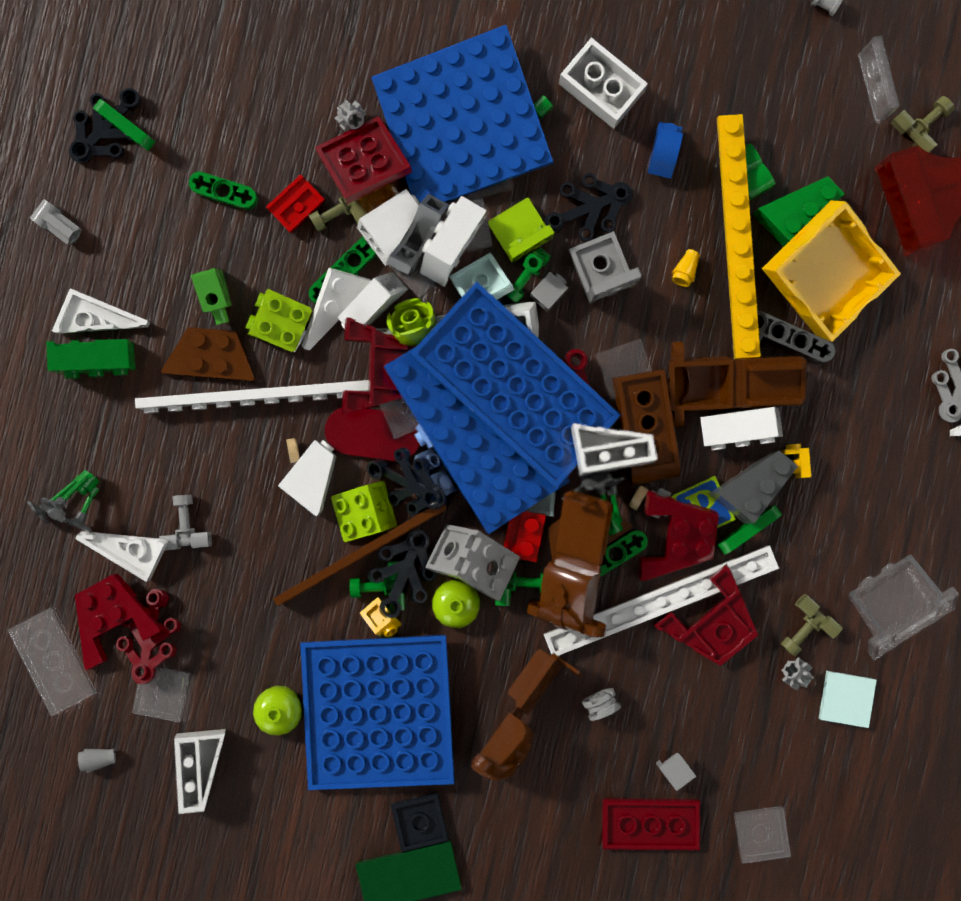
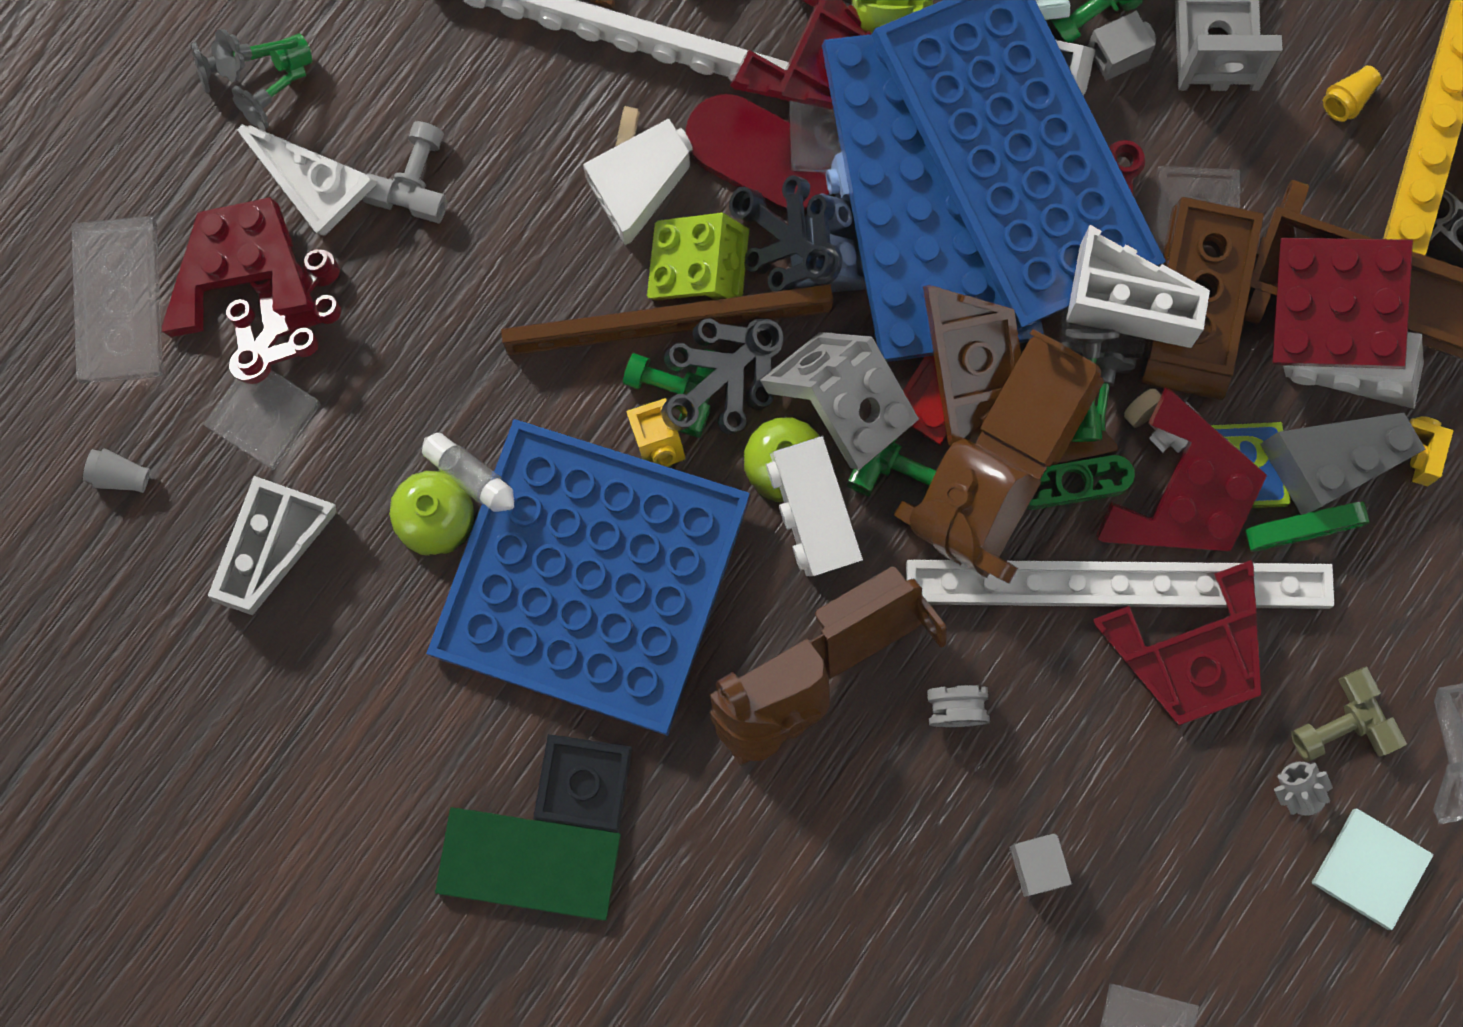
camera: 25 degrees right, 10 degrees down
(288, 684) = (468, 473): none -> piece
(484, 635) = (813, 507): none -> white wedge
(536, 512) = (973, 355): none -> wing
(650, 824) = (963, 944): dark red tile -> none
(725, 405) = (1343, 303): none -> dark red plate

